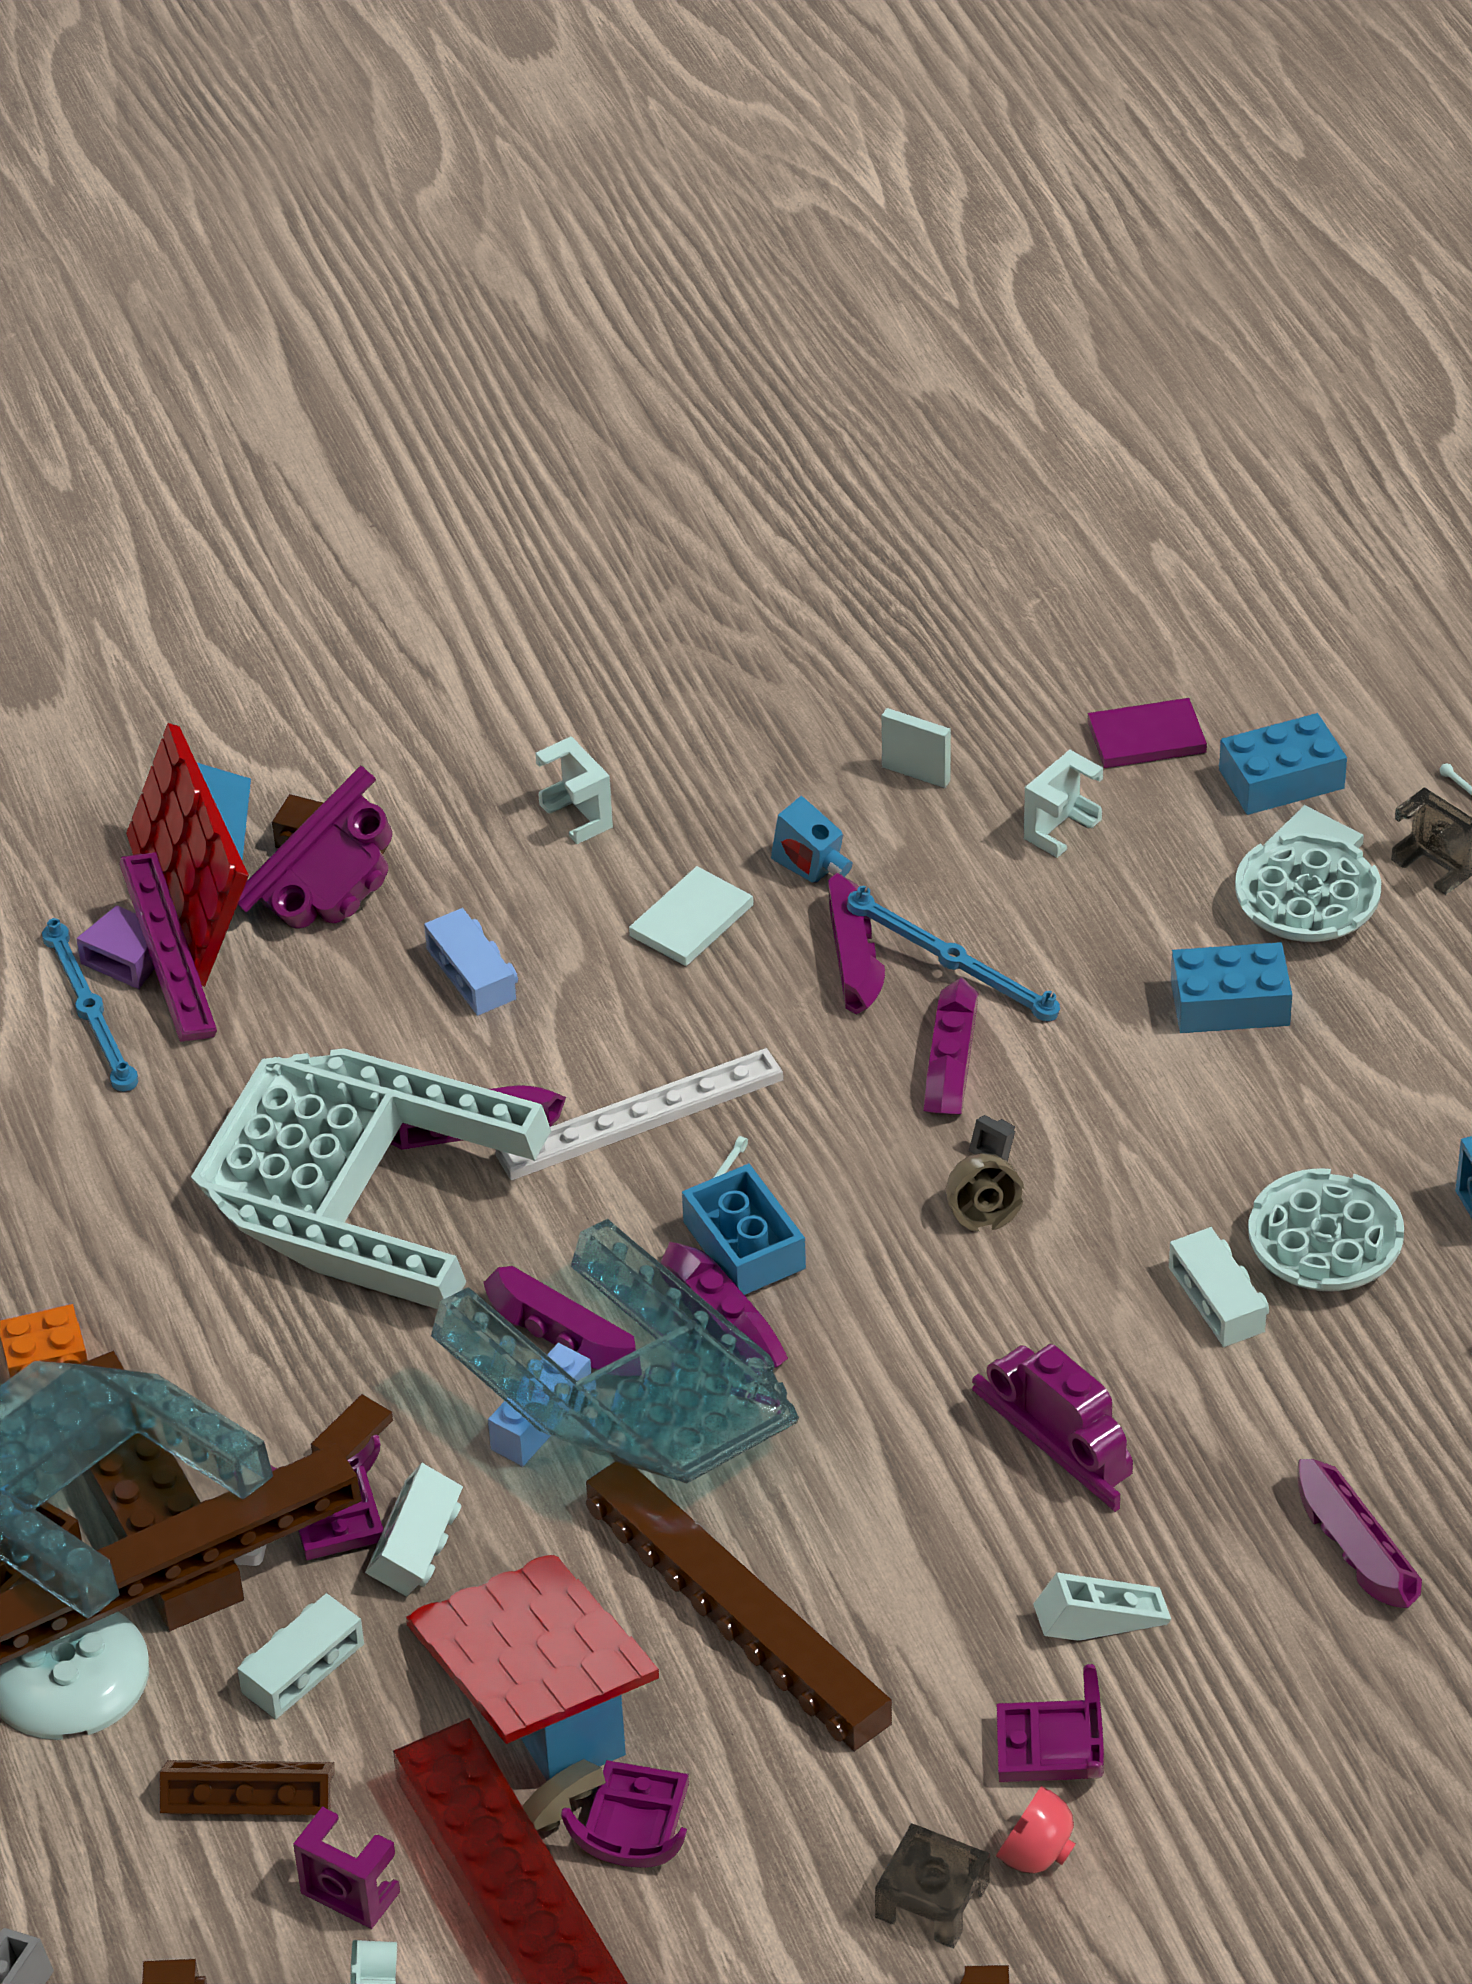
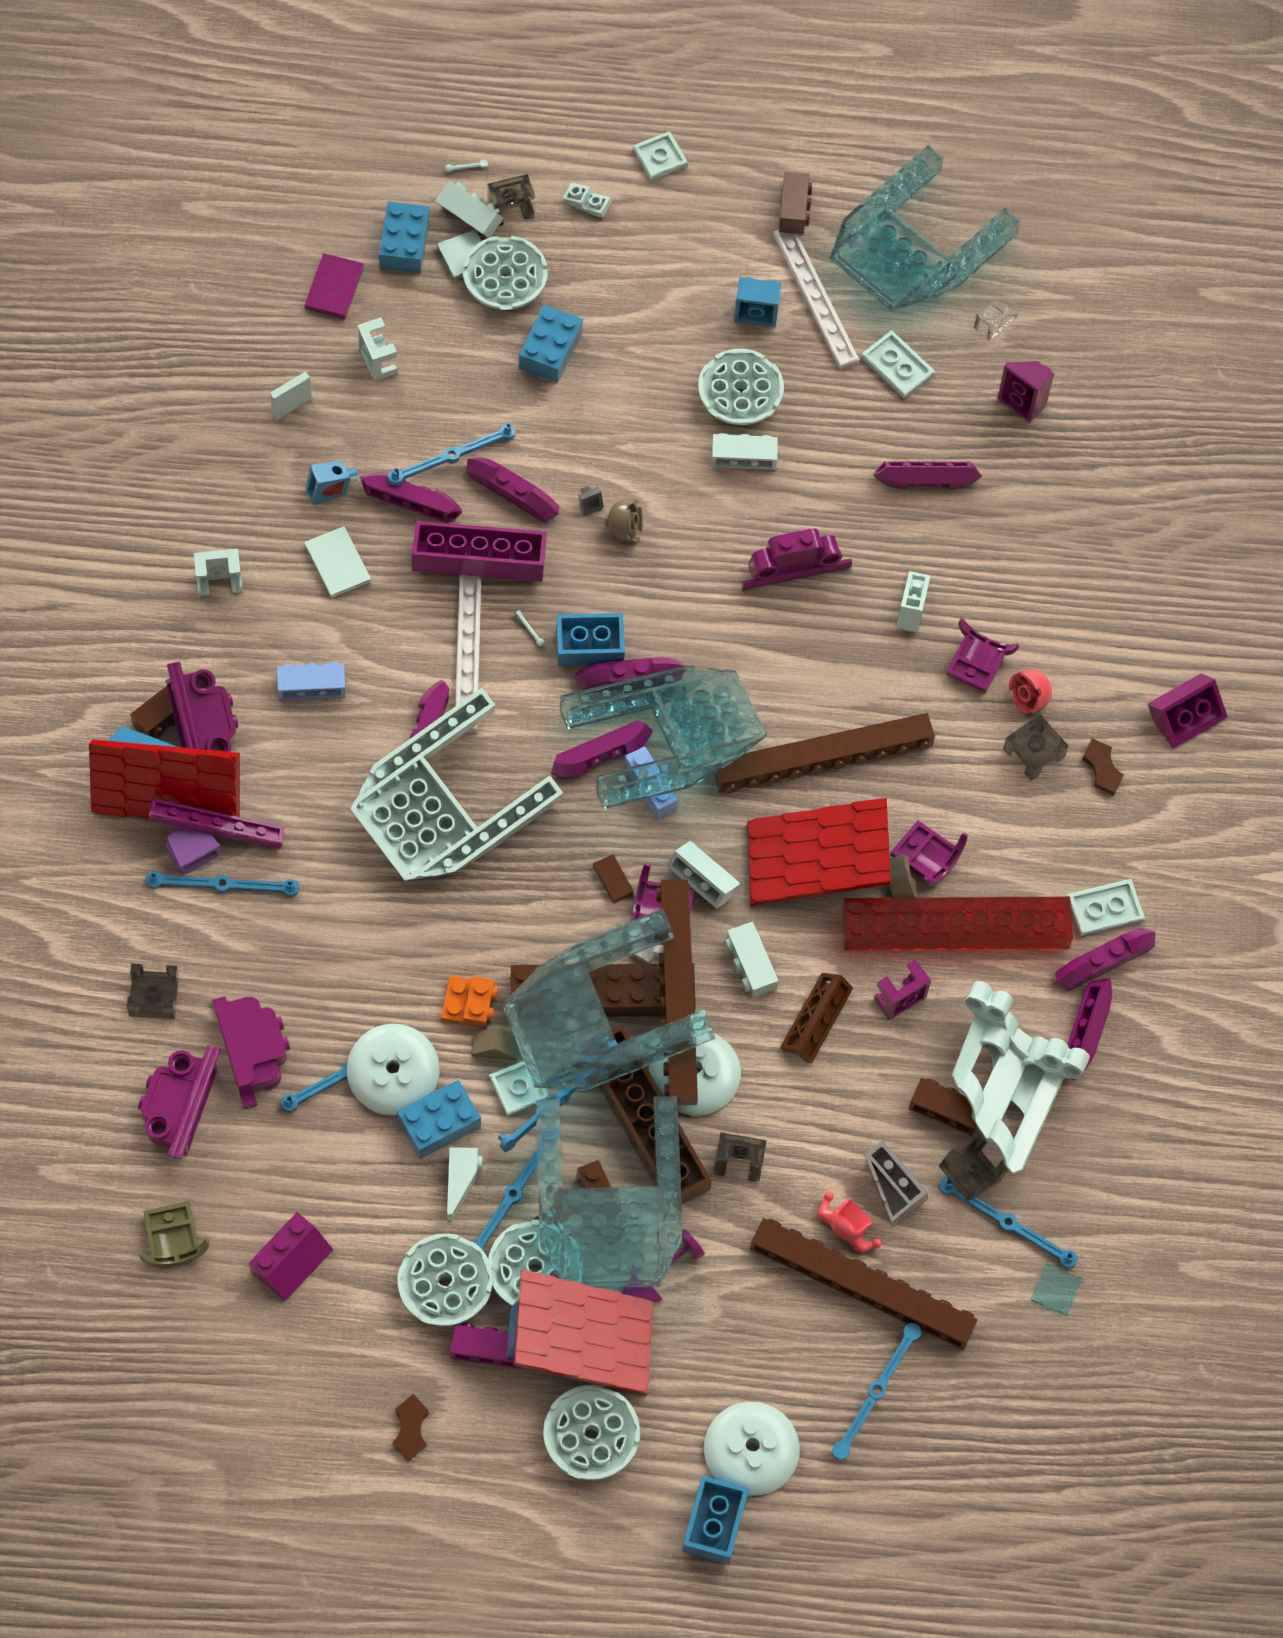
camera: 70 degrees left, 20 degrees up
(806, 1045) = (479, 551): none -> magenta brick
(1382, 791) = (470, 208): none -> light aqua brick

